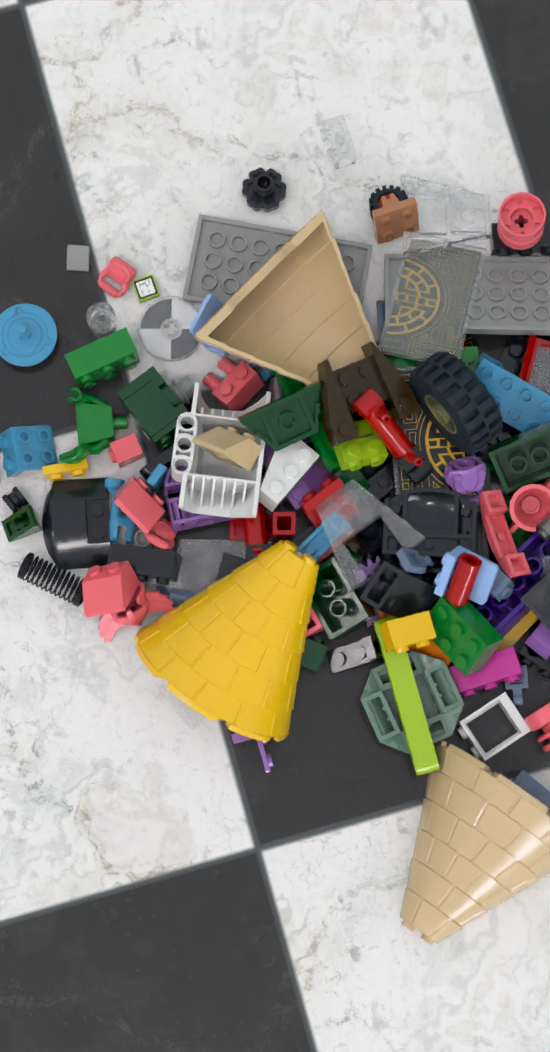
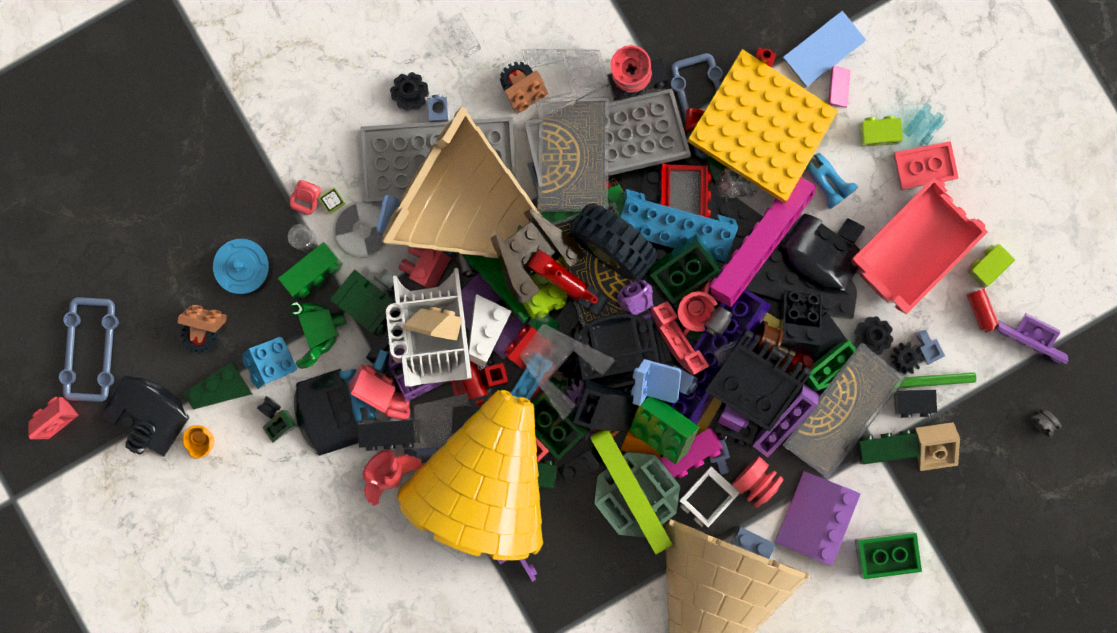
camera: 10 degrees left, 5 degrees up
(26, 565) = (343, 468): black piece -> none
(57, 471) = (297, 375): yellow plate -> none
(78, 258) = (268, 189): light grey slope -> none
(108, 588) = (365, 464): coral slope -> none
(125, 450) = (350, 342): coral brick -> none
(286, 418) = (476, 289): dark green wing -> none
(293, 206) = (438, 99): none -> sand blue brick
(408, 631) = (619, 440): yellow brick -> none
(413, 562) = (609, 382): sand blue plate -> none
(463, 579) = (654, 387): red brick -> none

